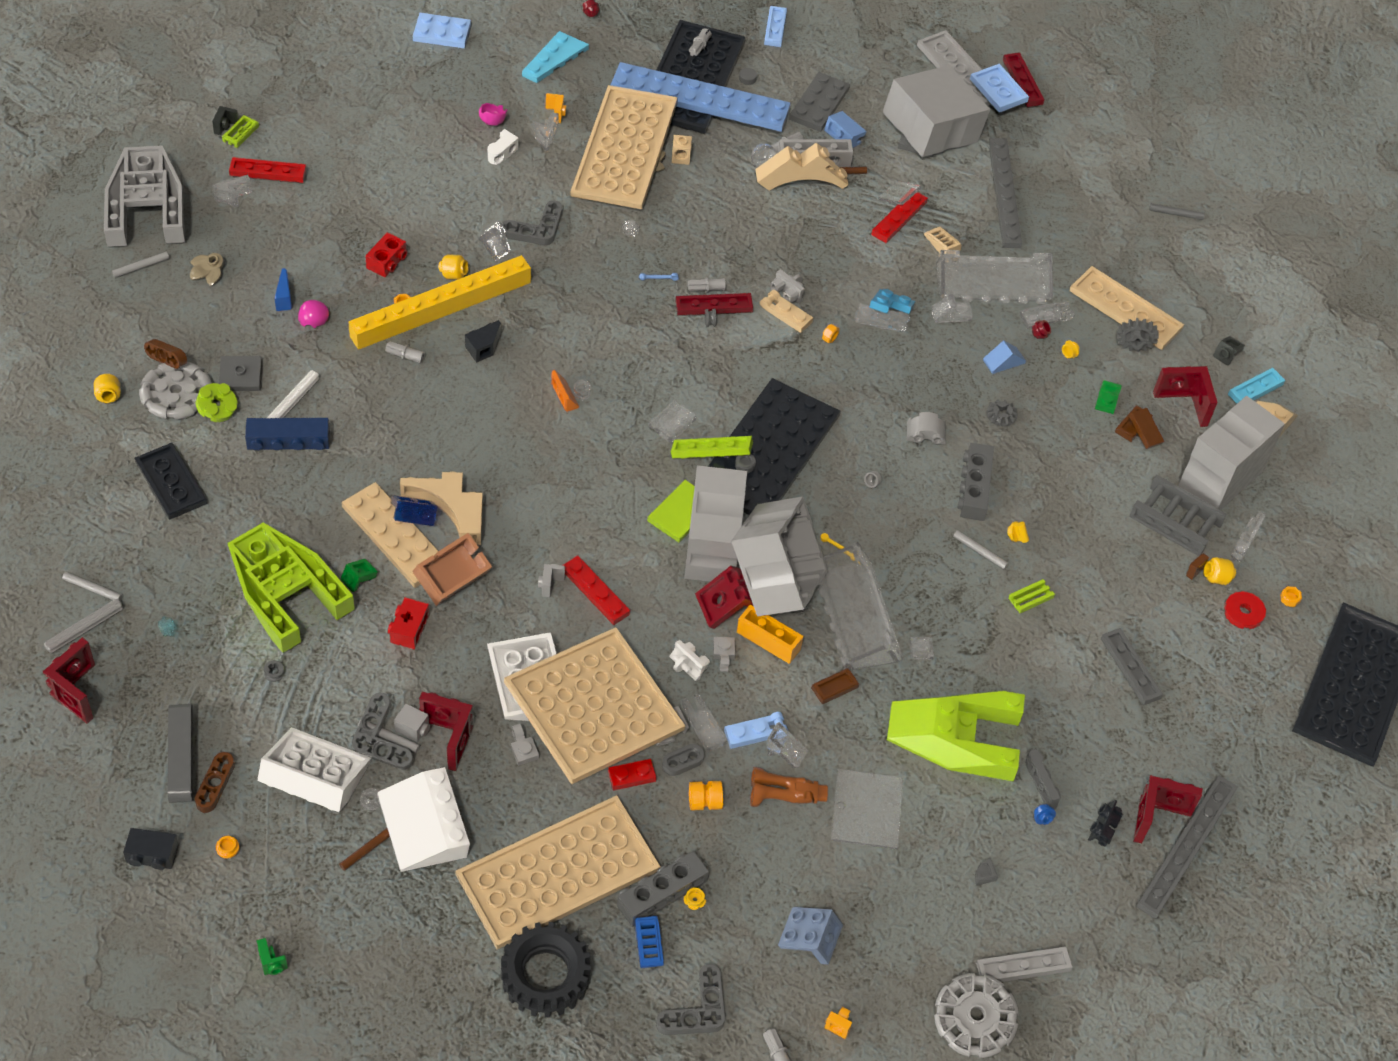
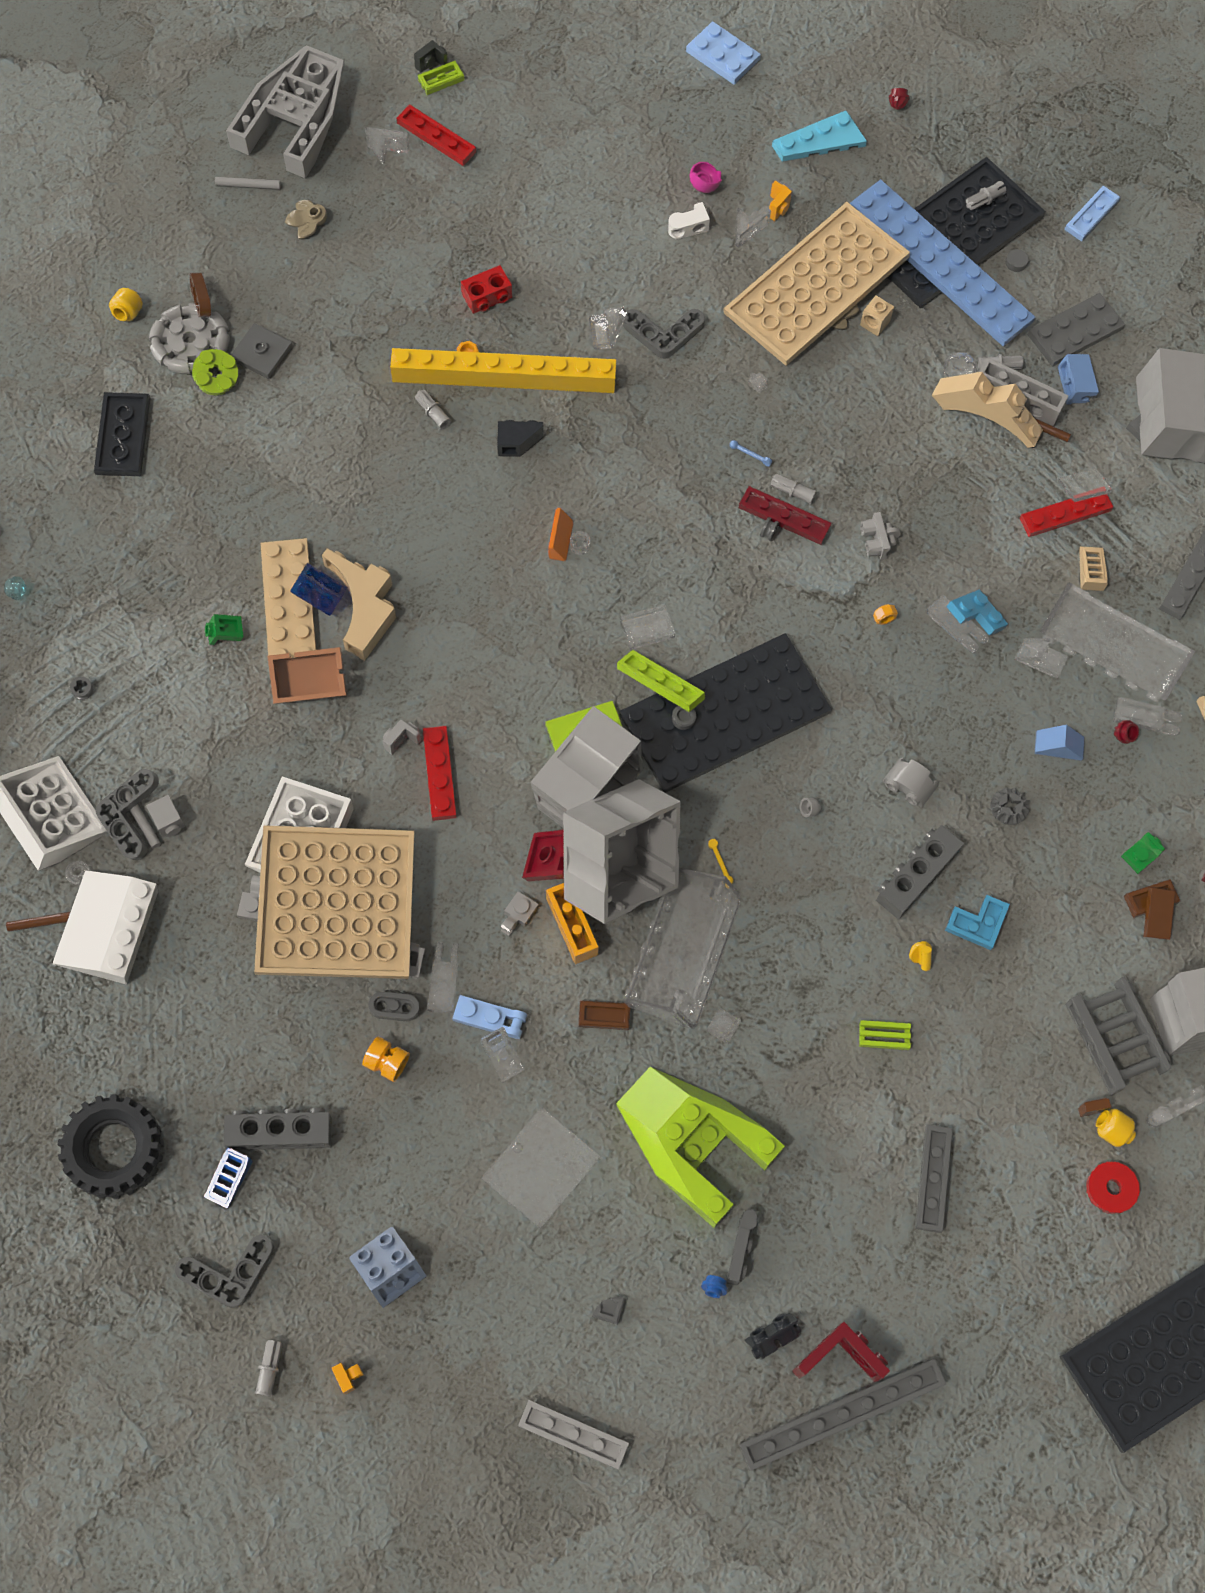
camera: 35 degrees right, 15 degrees up
(275, 567) = (142, 583): lime wedge -> none
(282, 295) = (358, 281): blue slope -> none
(287, 433) = (258, 441): dark blue brick -> none
(295, 395) = (290, 404): white axle -> none
(313, 313) = (373, 320): dark pink hair -> none
(409, 623) = (246, 706): red brick -> none
(450, 715) = (199, 853): dark red bracket -> none
(453, 267) = (544, 337): yellow head -> none
(557, 871) = (195, 1051): tan plate -> none
(631, 774) = (336, 992): red plate -> none
(687, 660) = (470, 904): white hips -> none
(695, 893) = (297, 1155): yellow plate -> none
(786, 311) = (858, 563): tan plate -> none
(797, 789) = (482, 1108): dark orange piece -> none
(967, 1025) = (500, 1451): light grey plate -> none
(980, 549) = (868, 951): light grey bar -> none
(1041, 496) = (981, 928): none -> dark azure plate
(1070, 349) = (1143, 772): yellow plate -> none
(1291, 596) = (1178, 1203): light orange tile -> none

